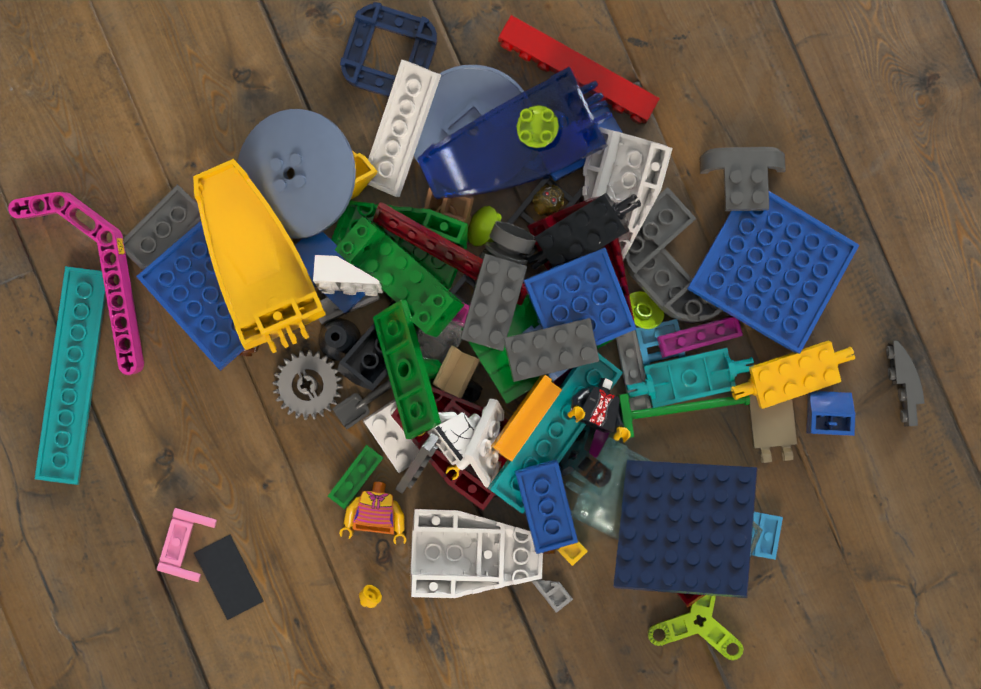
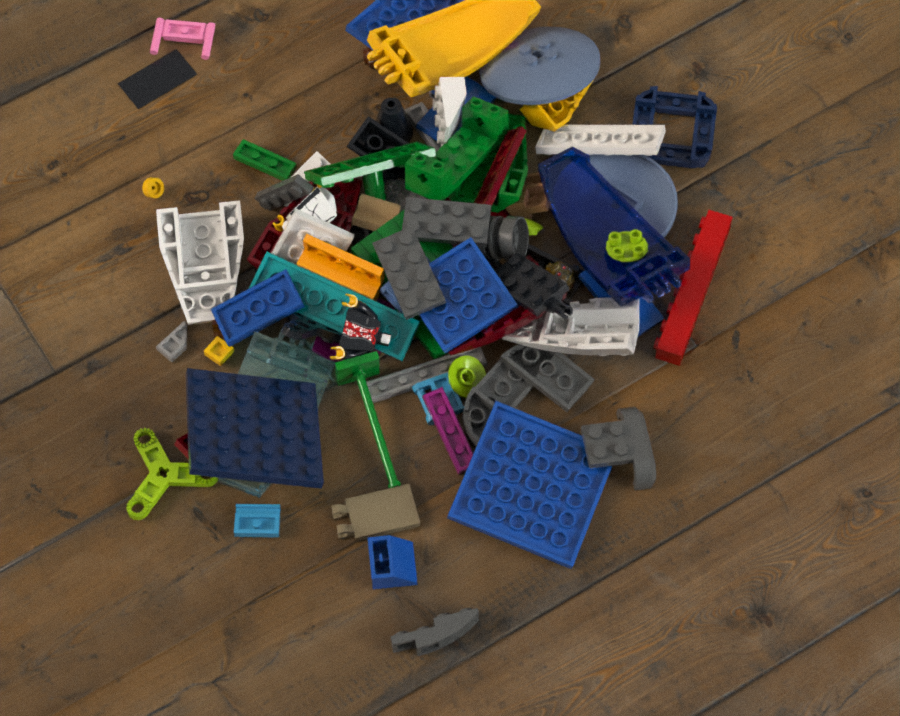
camera: 85 degrees right, 25 degrees down
(298, 366) = (347, 102): light grey gear -> none
(355, 408) = (329, 149): dark grey piece -> none
(375, 513) = (231, 178): torso -> none
(689, 377) = (406, 428): teal plate -> none
(794, 374) = (427, 521): yellow plate -> none

